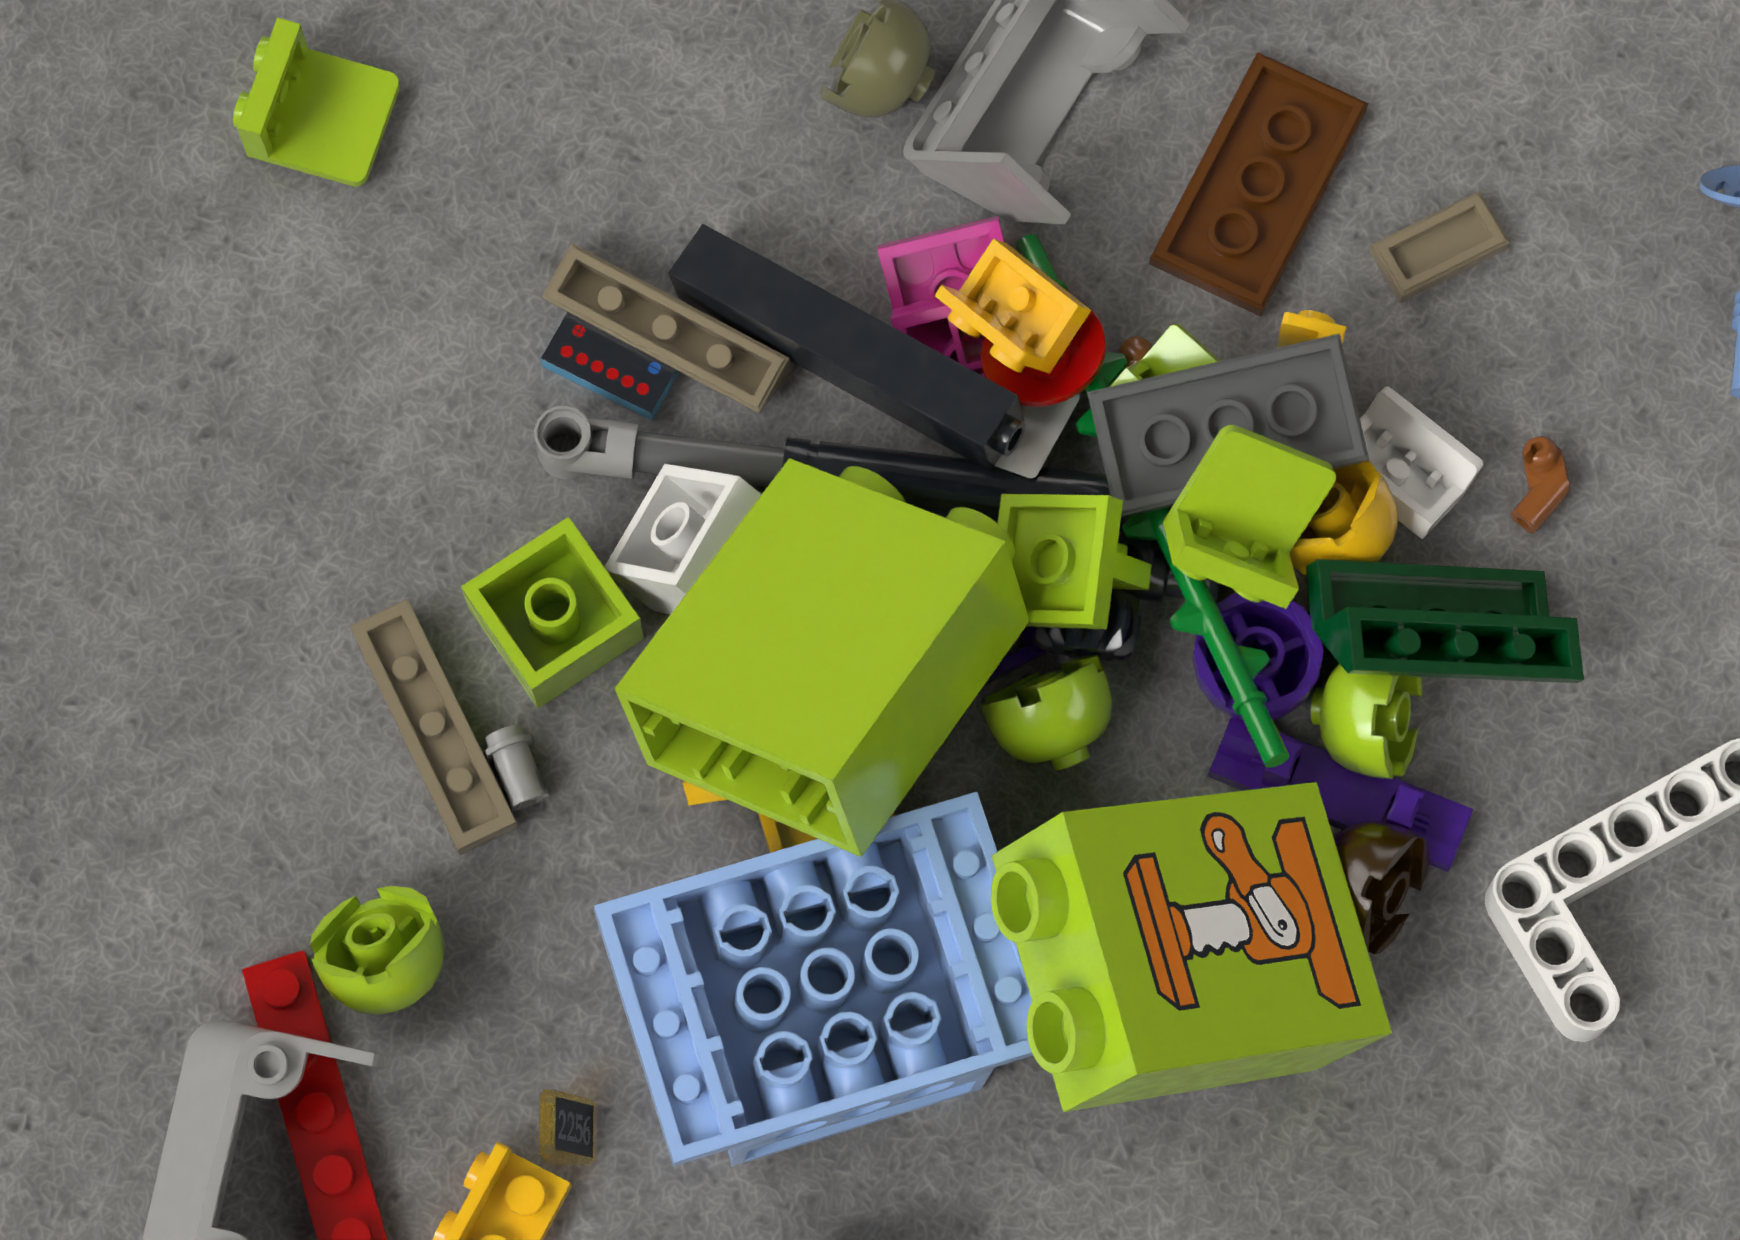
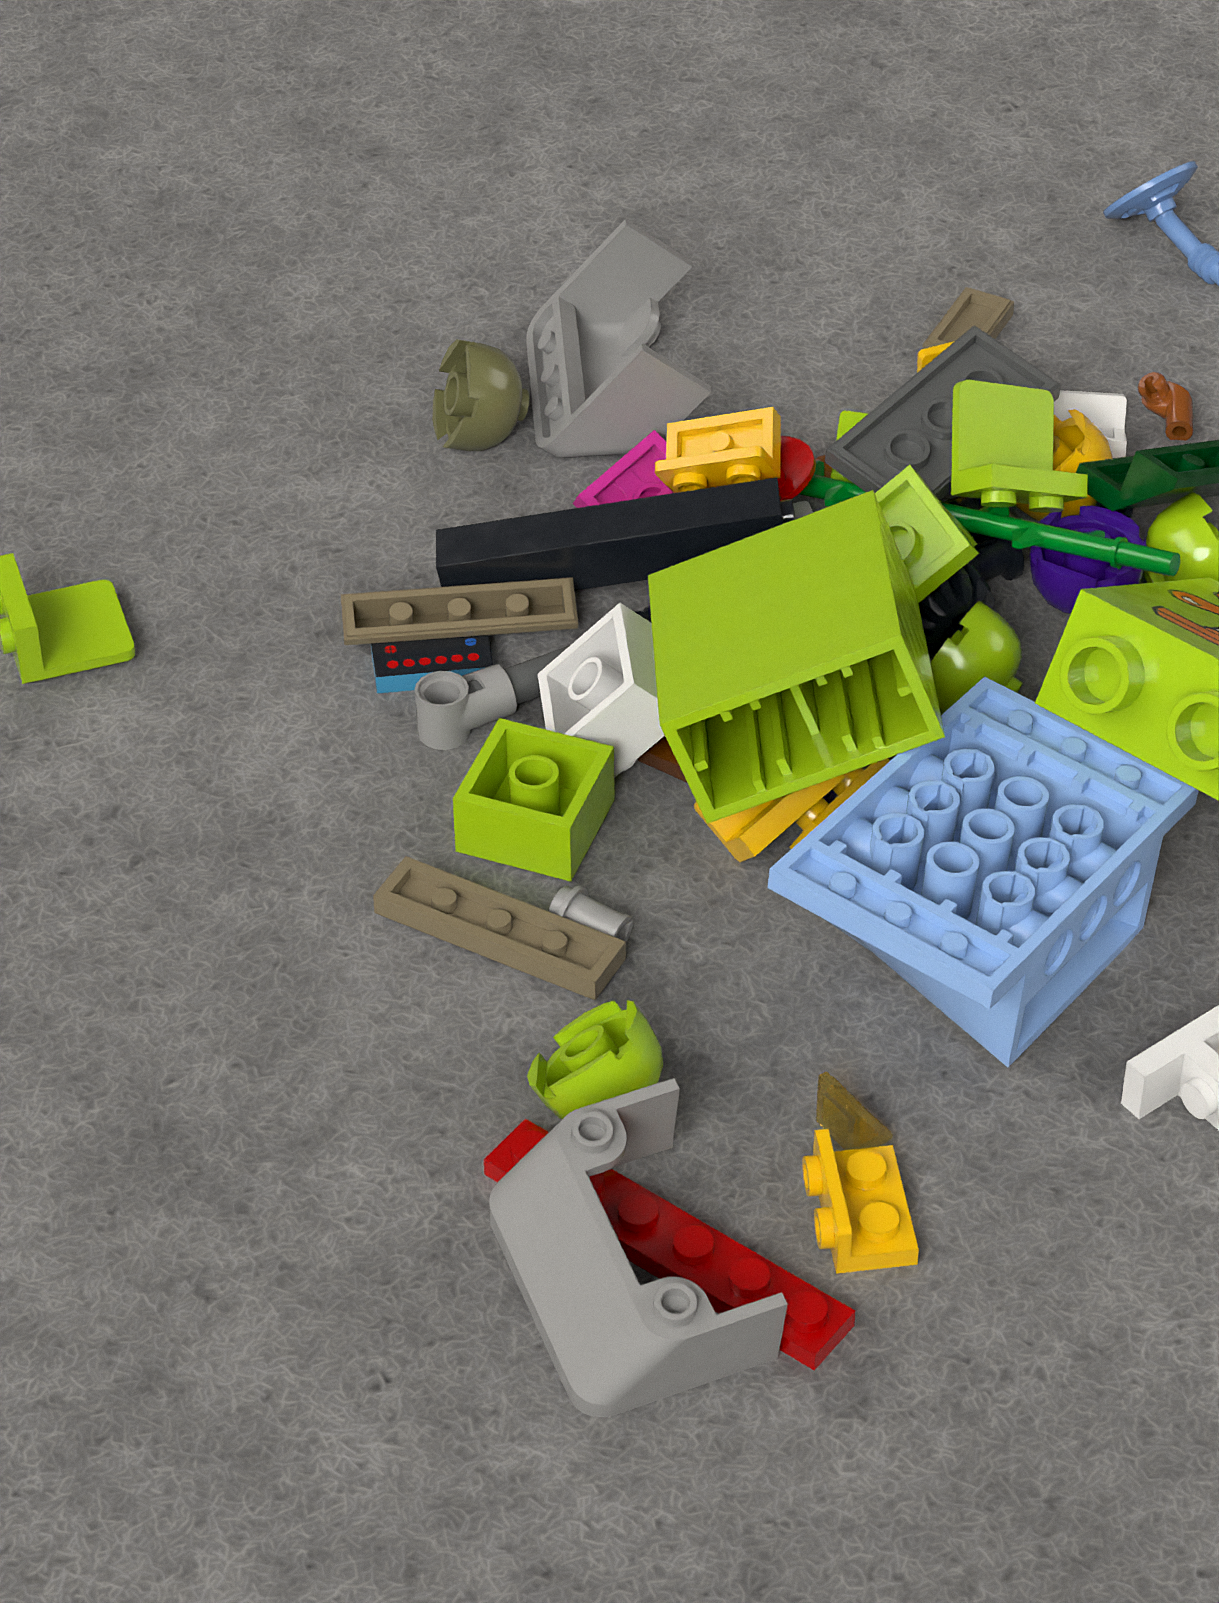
camera: 35 degrees left, 30 degrees down
(1258, 184) = (809, 353): reddish brown tile -> none

